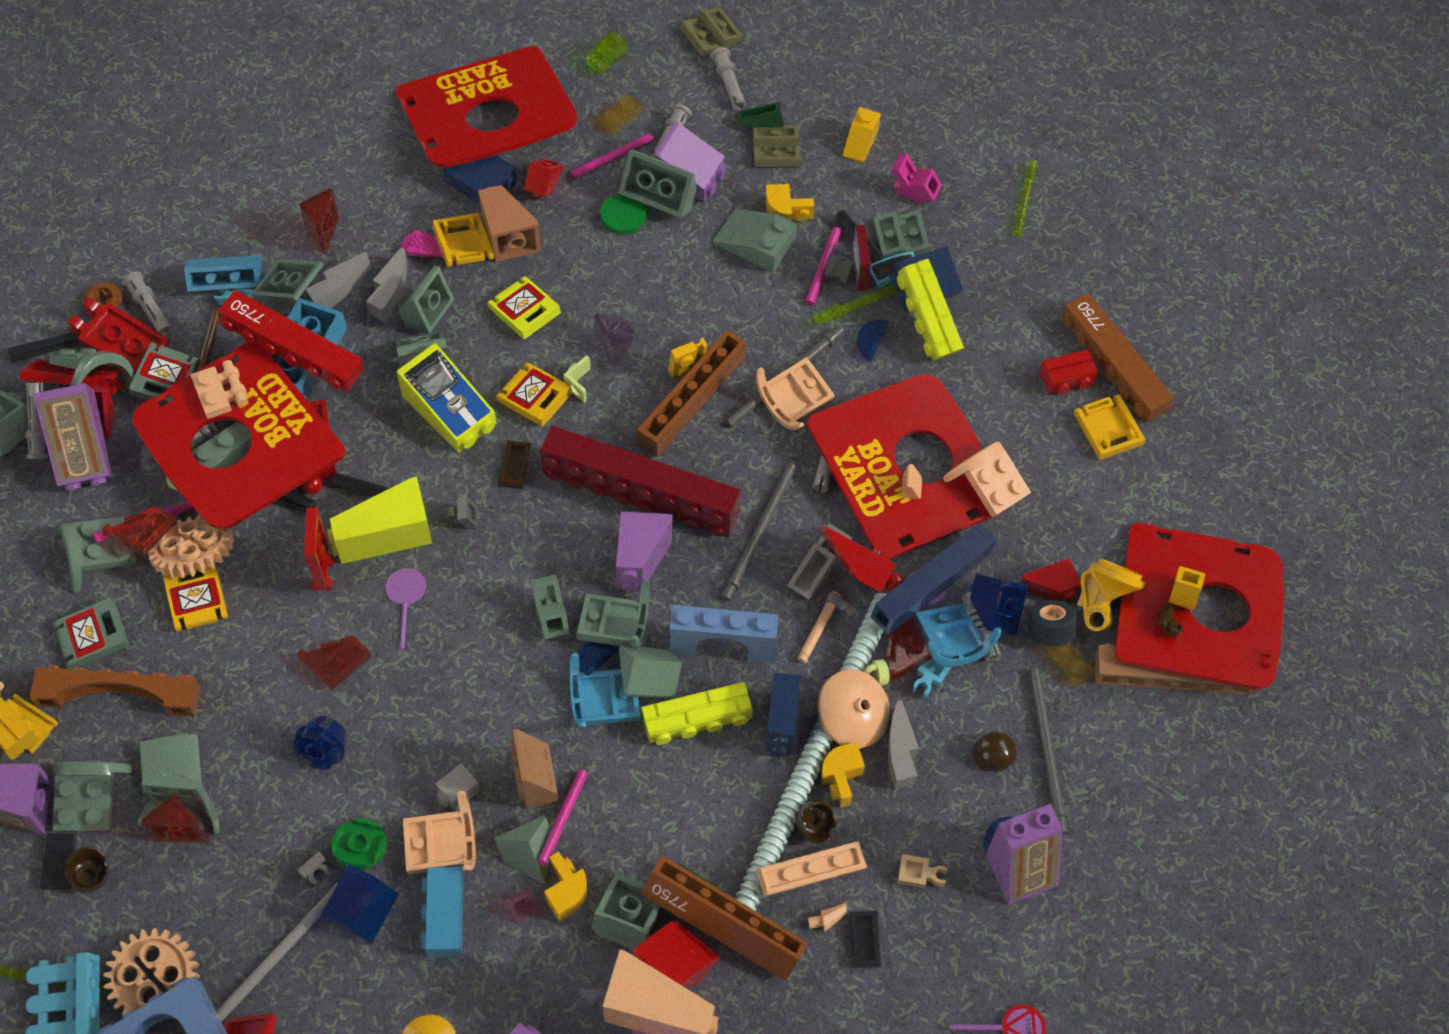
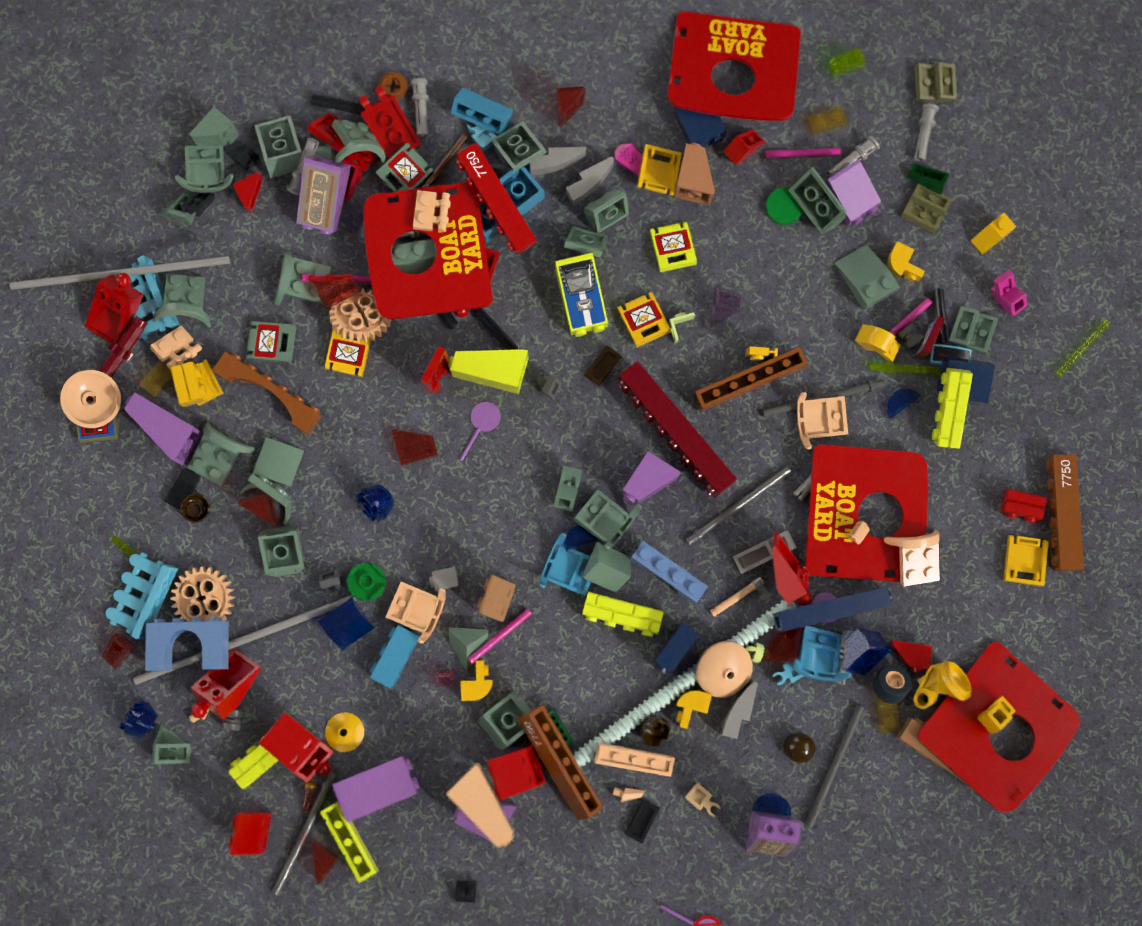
camera: 30 degrees right, 20 degrees up
(230, 865) = (281, 551): none -> sand green slope
(808, 286) = (878, 340): none -> yellow brick
(1166, 622) = (966, 731): dark brown arm -> none

